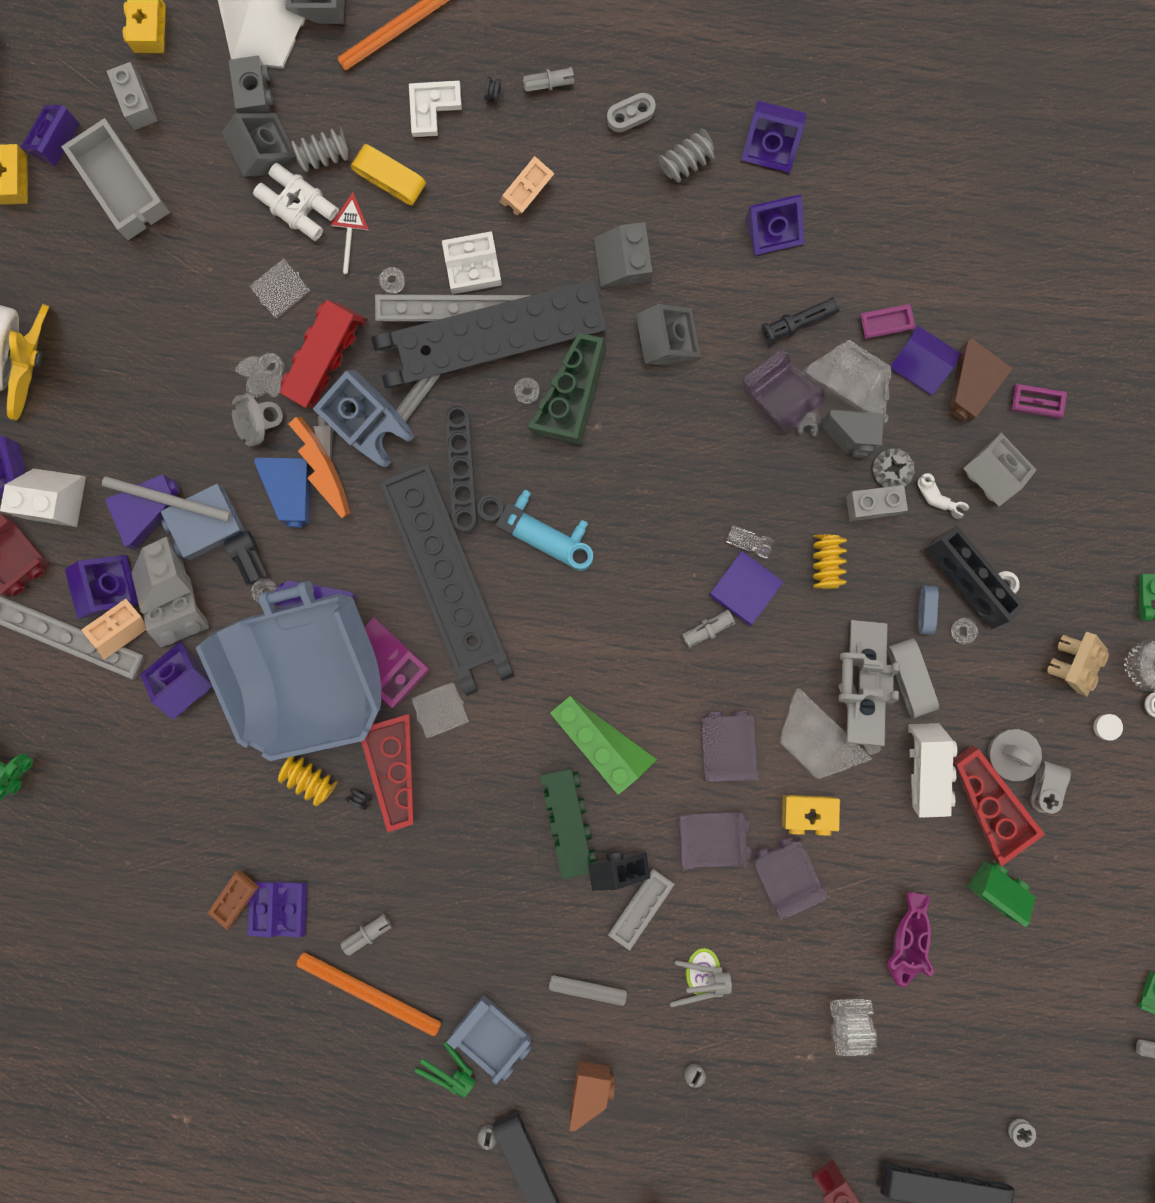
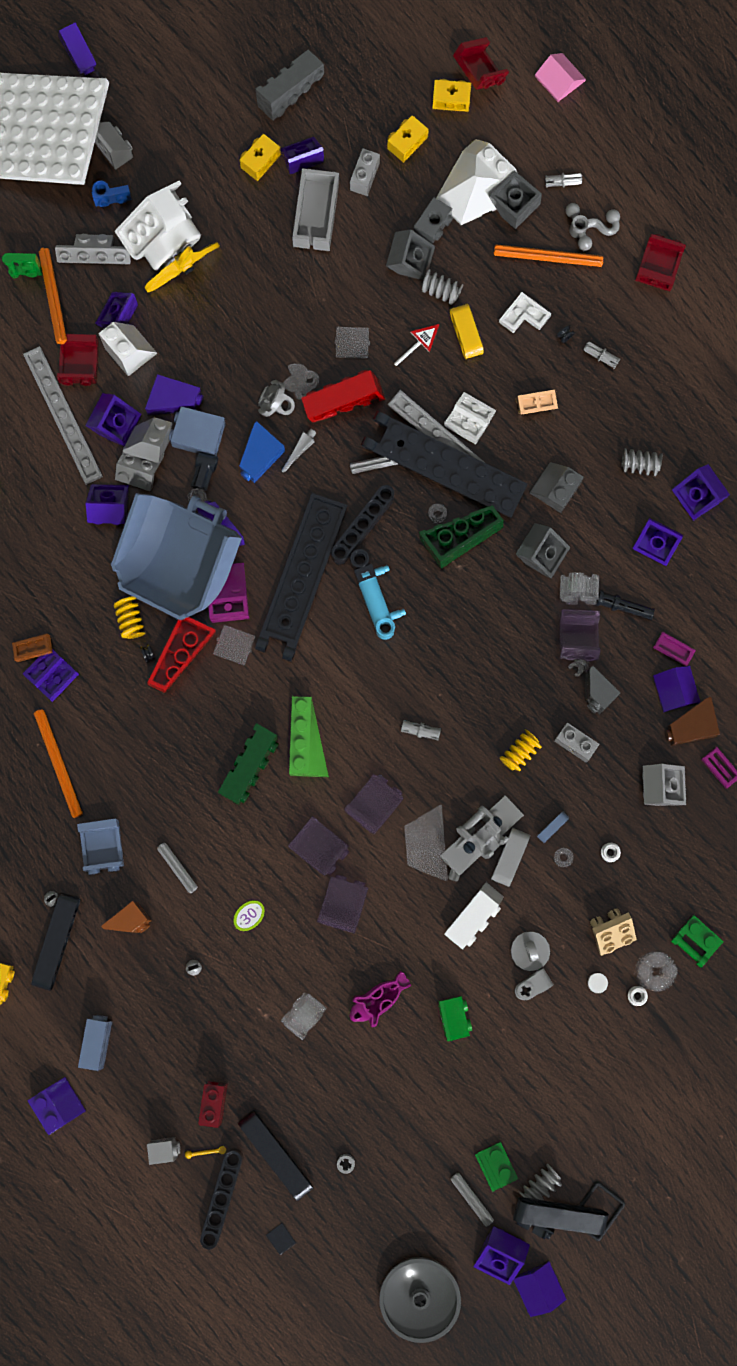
camera: 40 degrees right, 5 degrees down
(114, 629) = (100, 448): light nougat hinge -> none
(166, 499) = (190, 403): light grey piece -> none
(297, 190) = (410, 299): white pin -> none
(325, 475) = (285, 464): orange slope -> none
(366, 935) = (85, 730): light grey axle -> none
(368, 423) = (335, 455): sand blue brick -> none
(392, 287) = (417, 395): clear plate -> none
(458, 1083) = (63, 854): green plant -> none
(619, 870) = (253, 814): black brick -> none
(629, 112) = (632, 409): light grey plate -> none
(641, 909) = (246, 849): light grey plate -> none
(718, 984) = (251, 927): light grey plant -> none
(741, 341) = (579, 588): none -> clear brick
(746, 588) = (461, 726): dark purple slope -> none
(749, 541) = (487, 702): clear bar -> none
(826, 810) = (397, 883): yellow brick -> none
(853, 377) = (626, 663): clear wing -> none
(883, 462) = (613, 730): light grey gear -> none
(933, 496) = (613, 770): white arm -> none
(974, 577) = (594, 831): black brick -> none
(997, 810) = (491, 973): red wedge -> none

